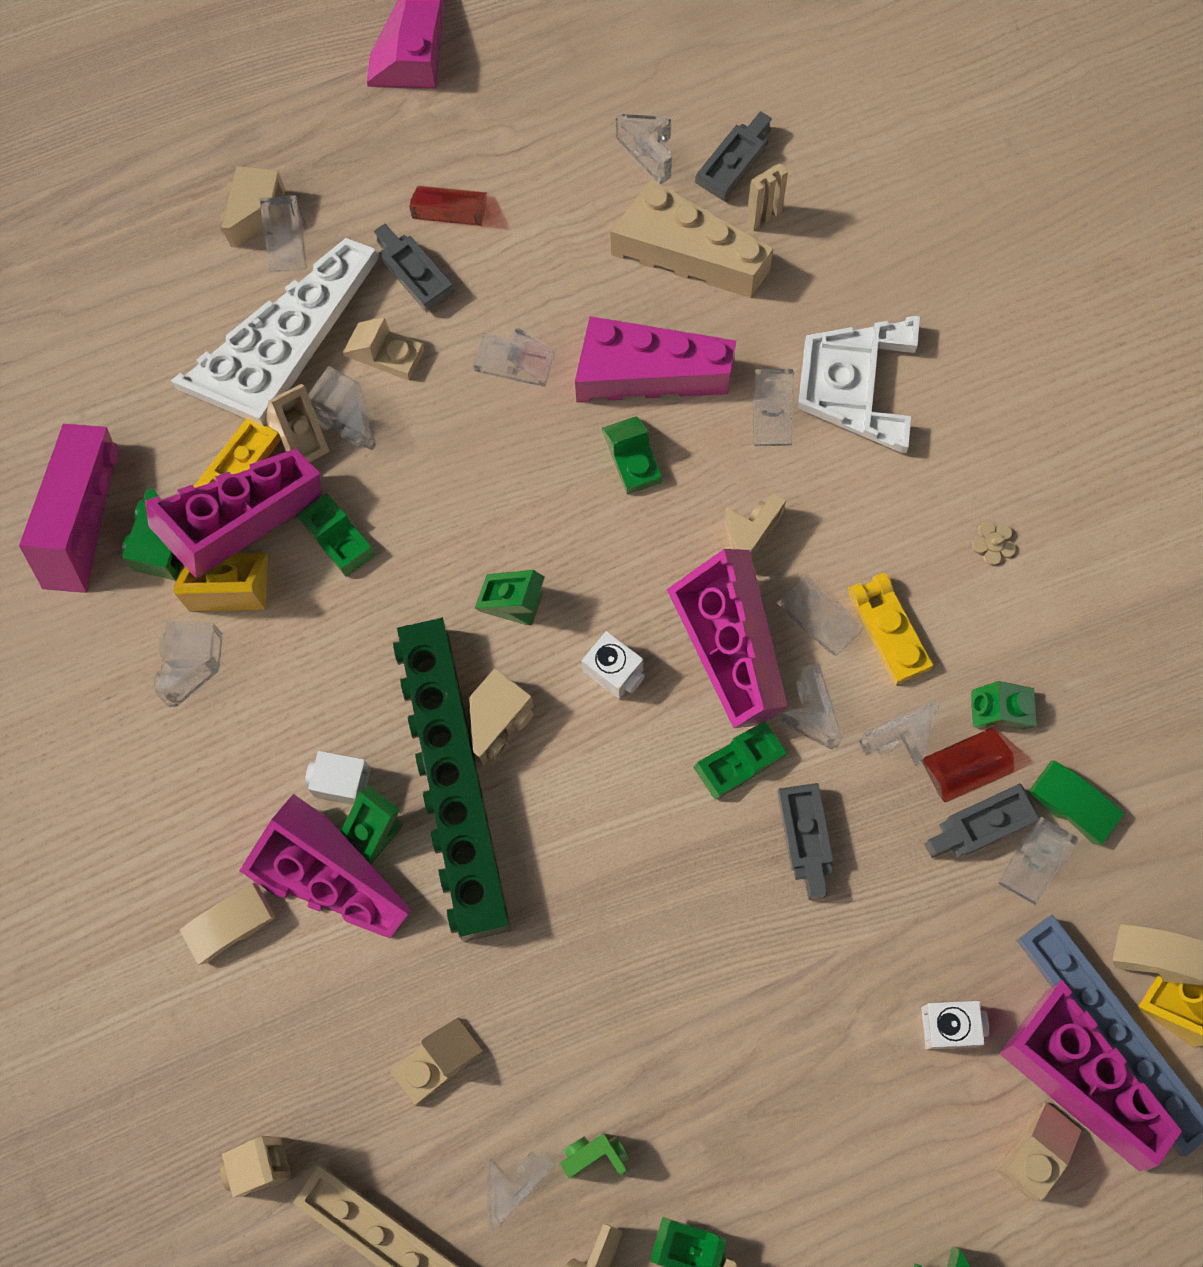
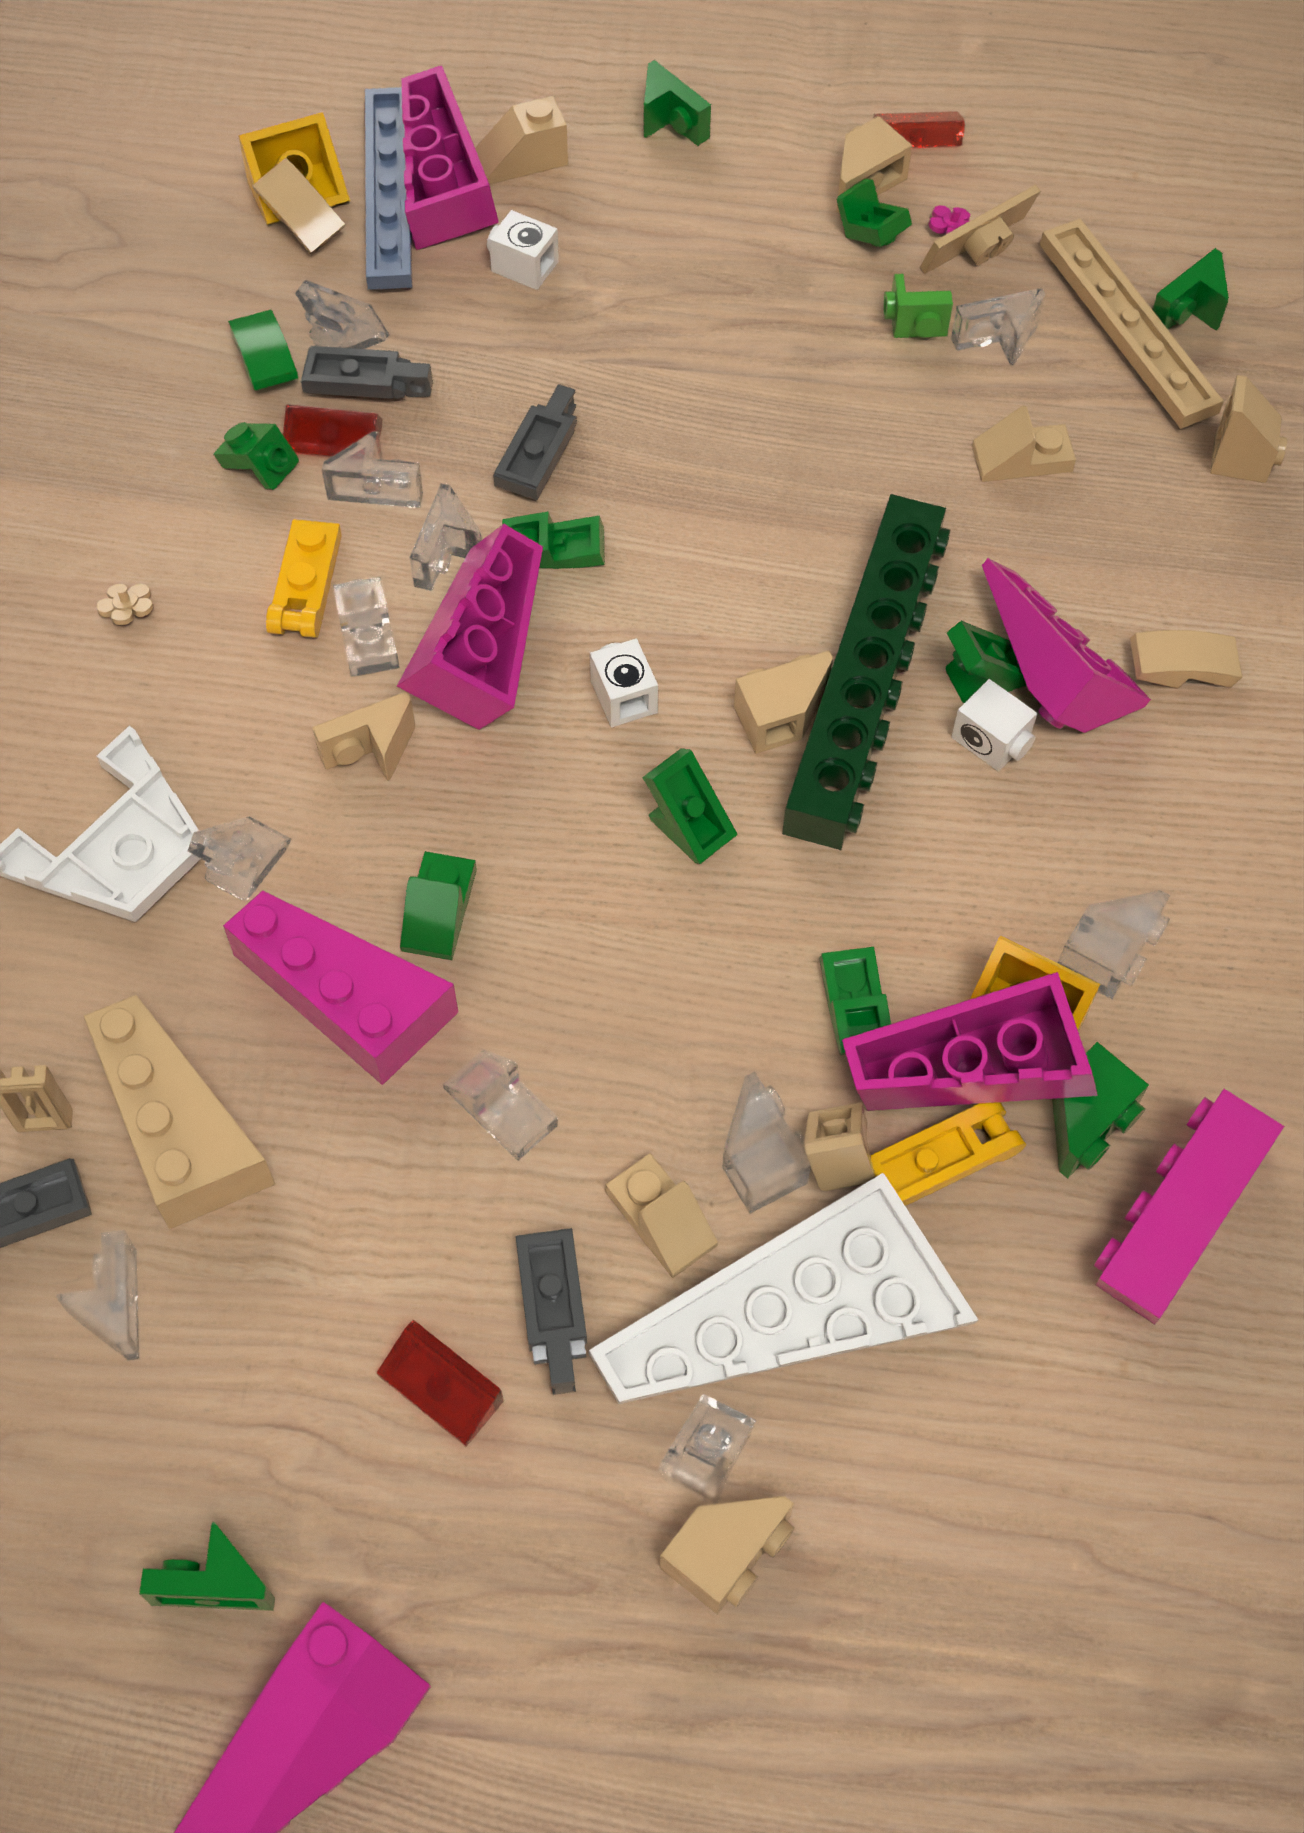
camera: 155 degrees left, 10 degrees down
(493, 60) = (223, 1585): none -> green slope

